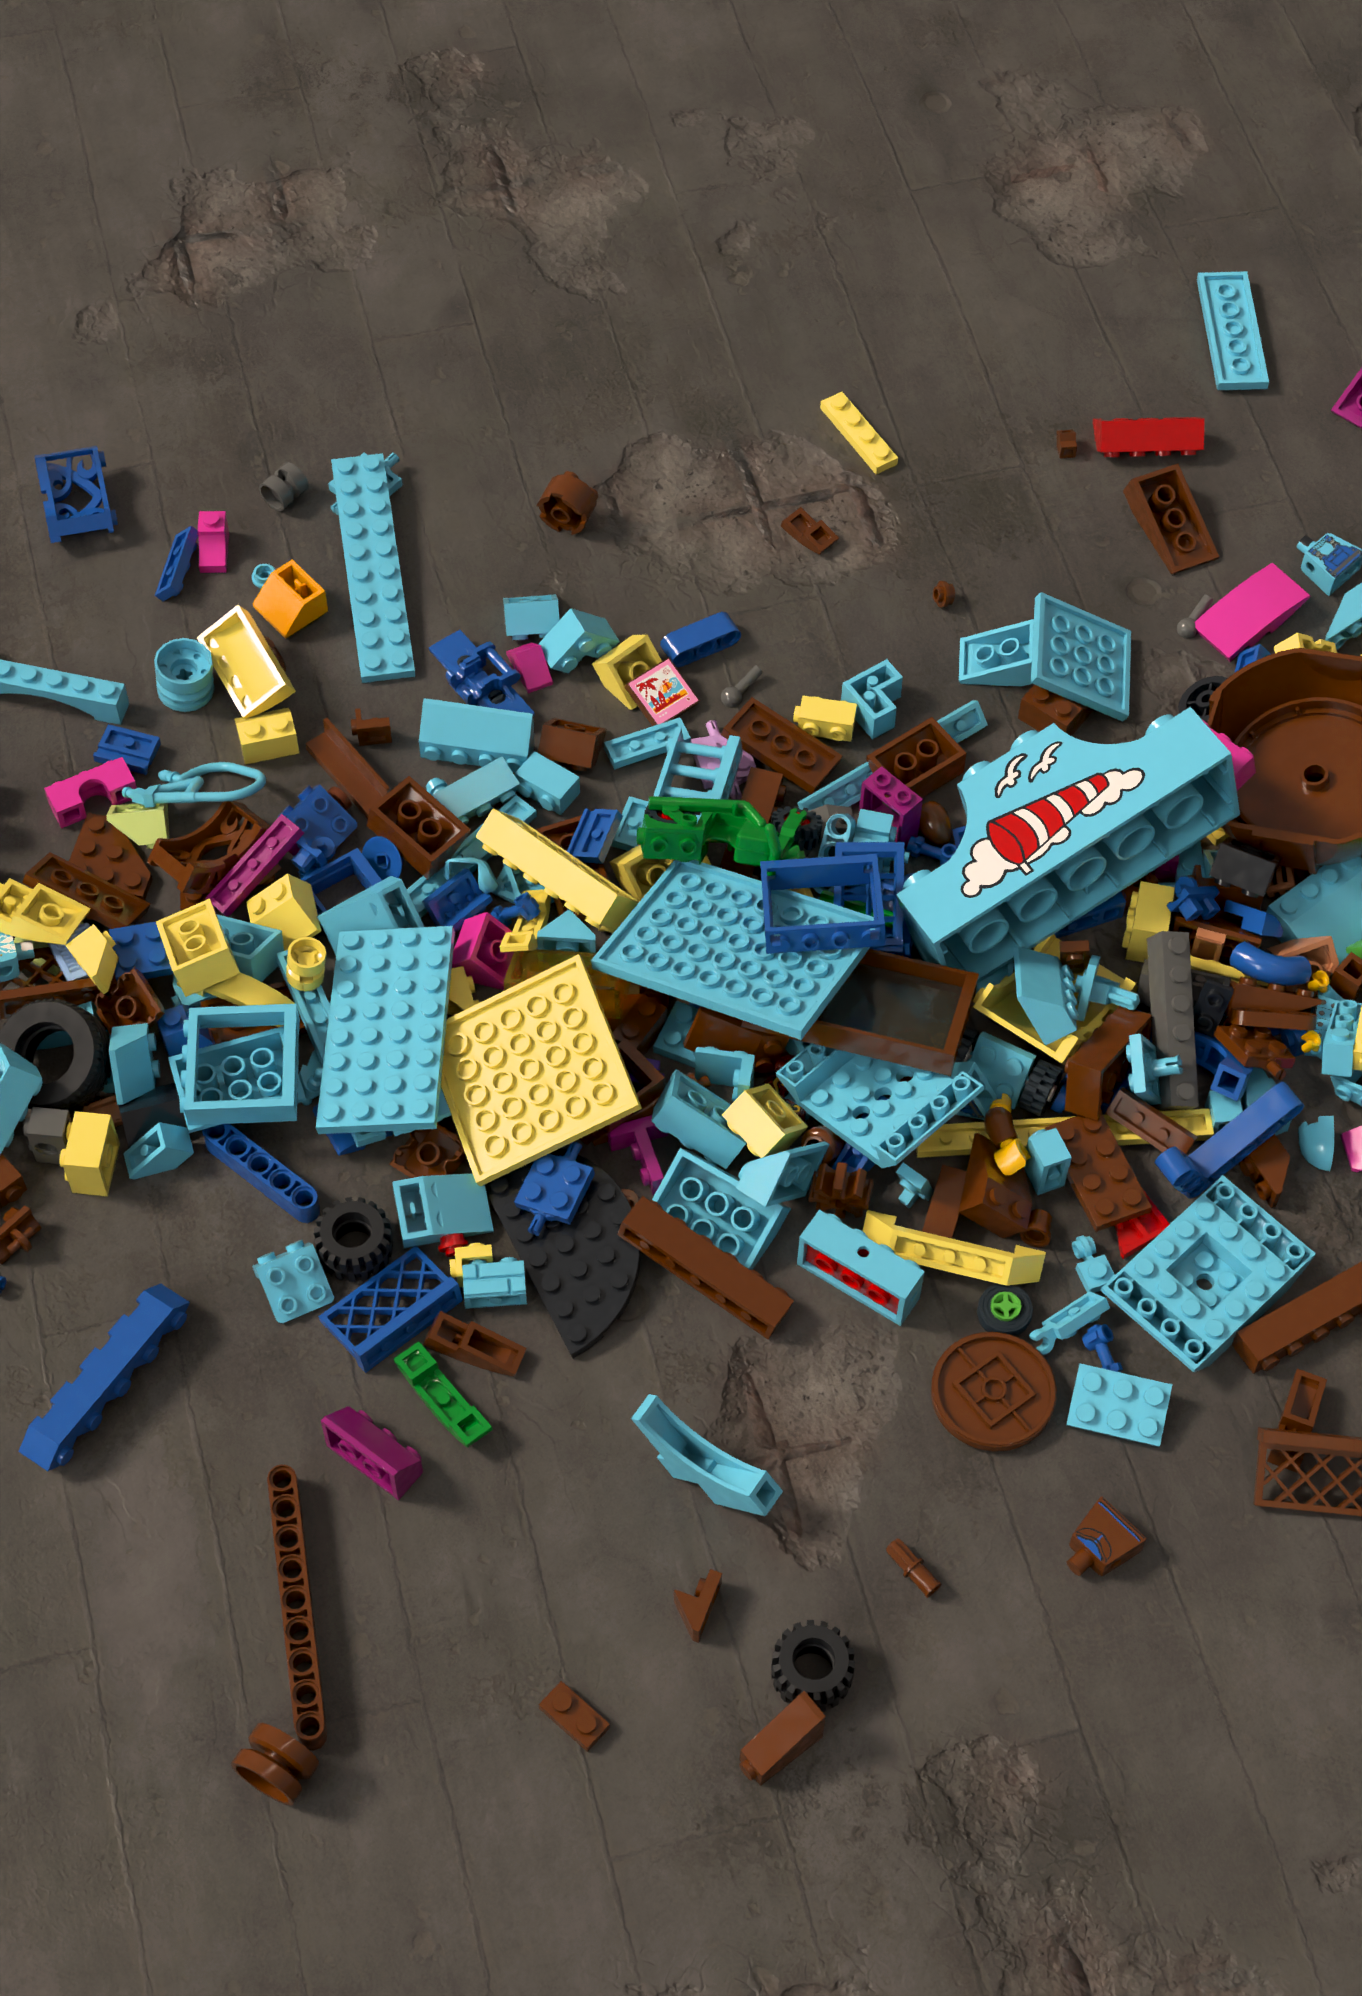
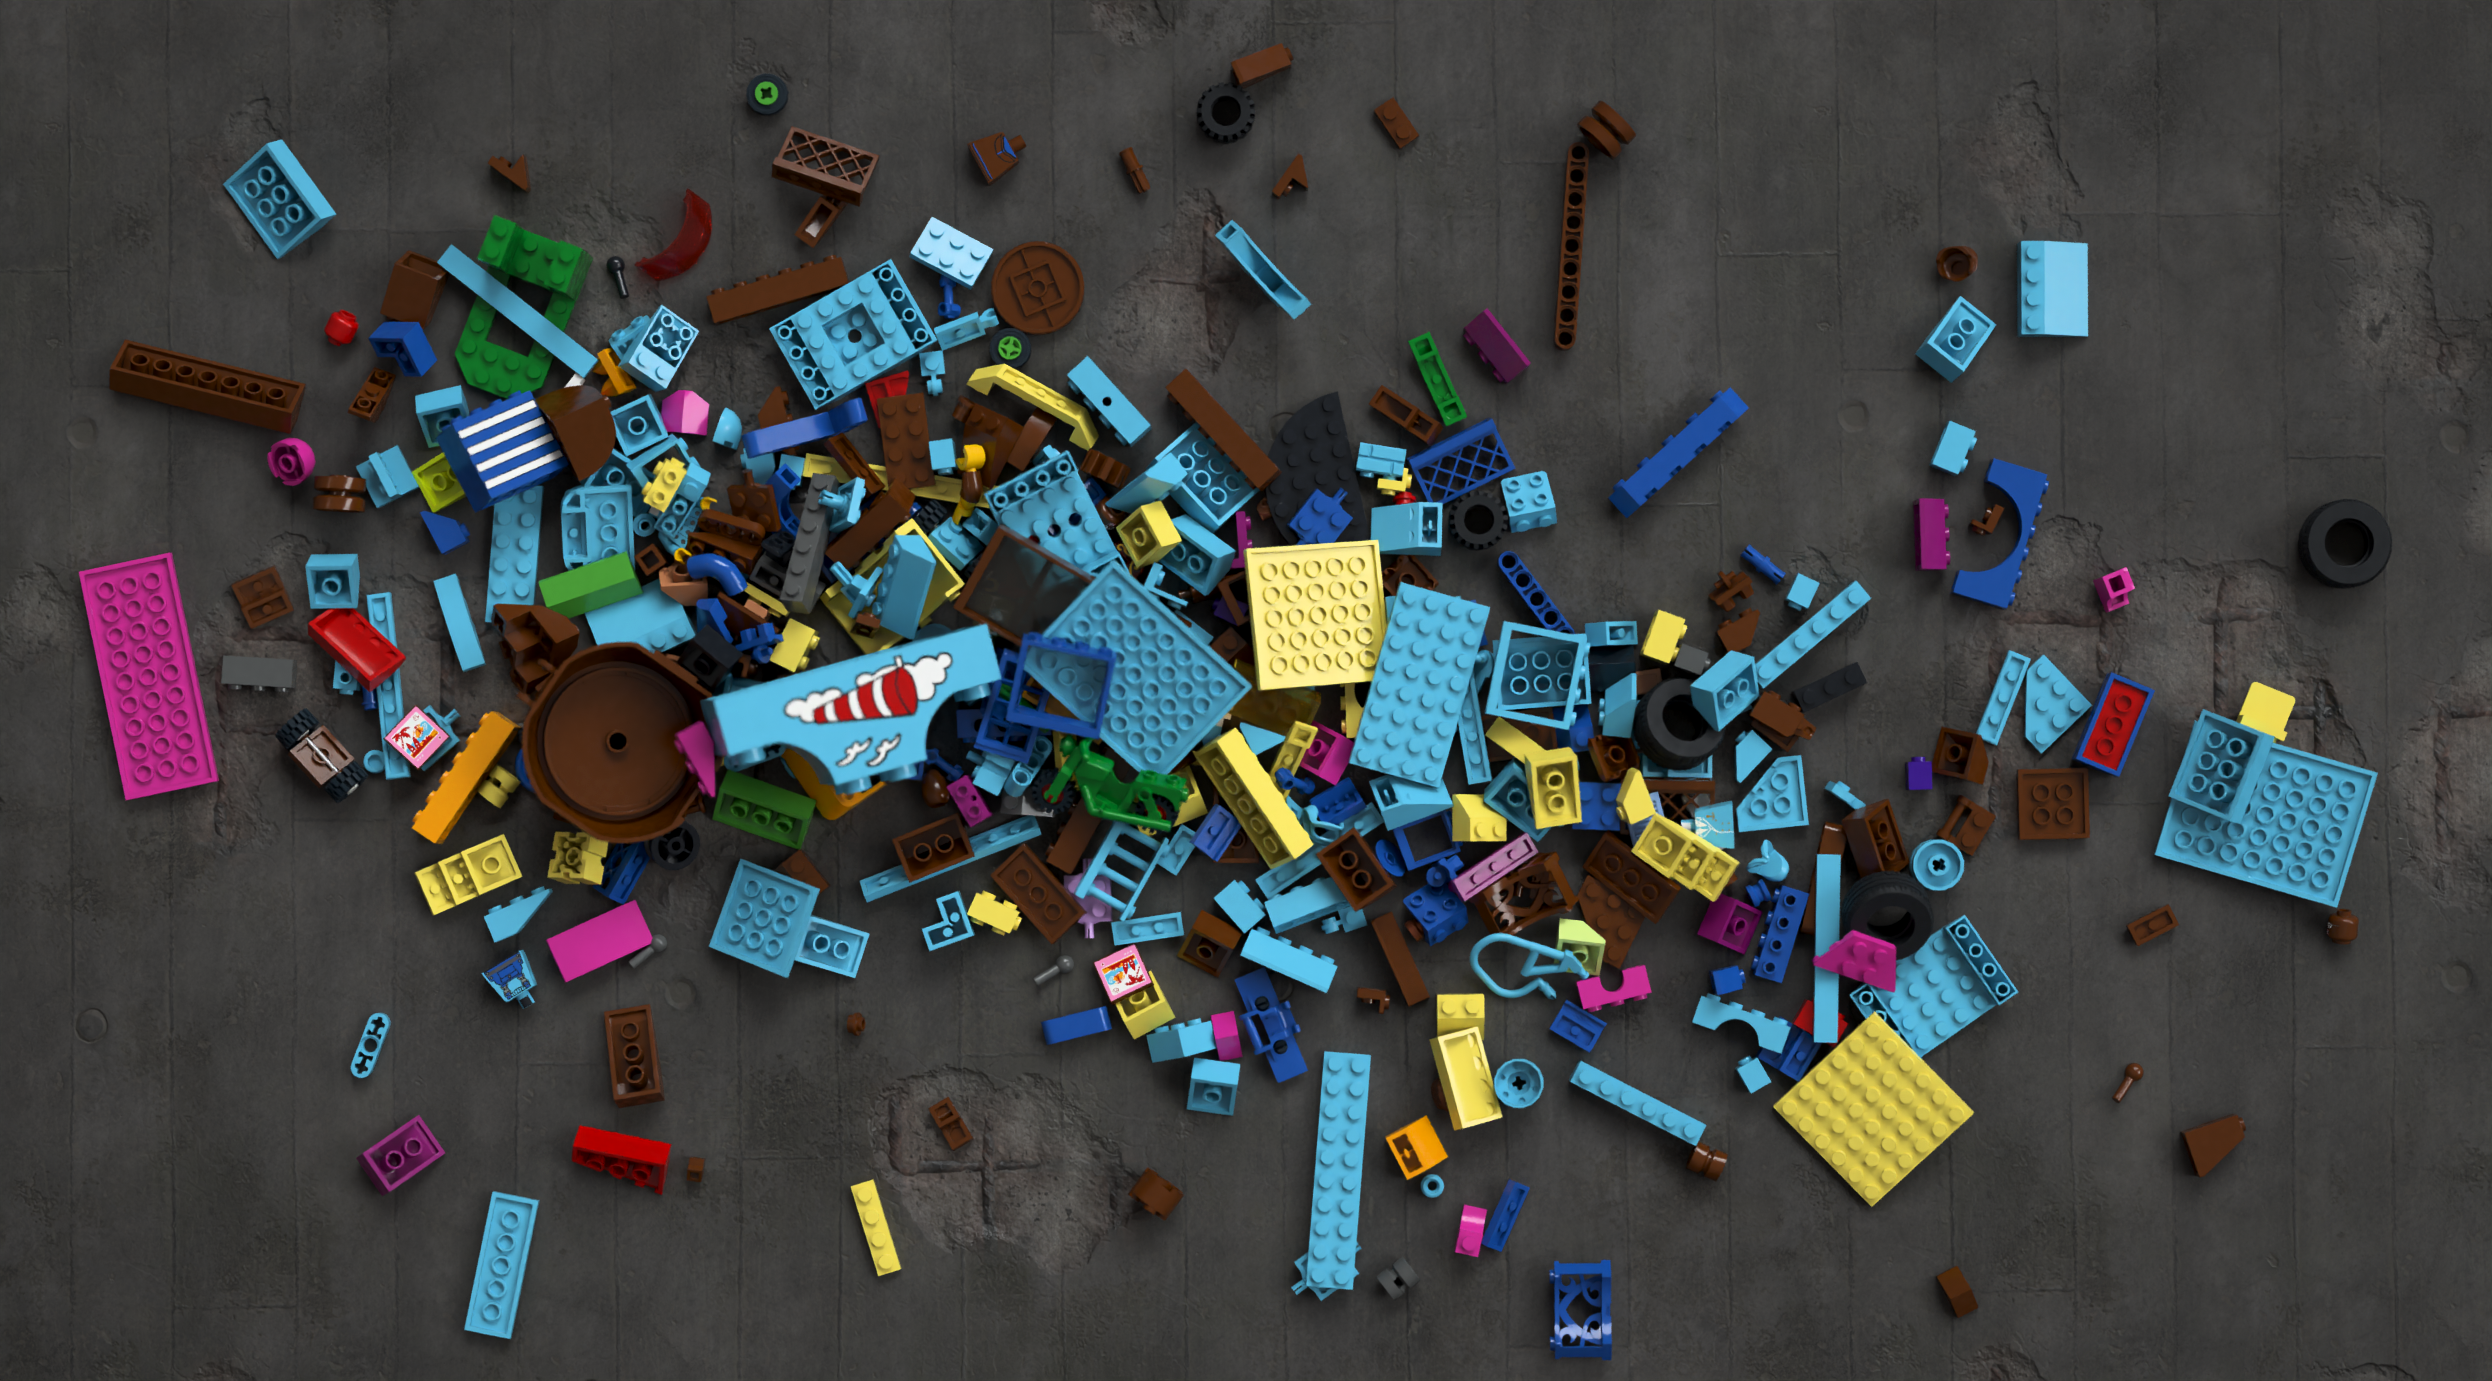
camera: 165 degrees left, 30 degrees up
(305, 963) = (1471, 755): light yellow wheel -> none

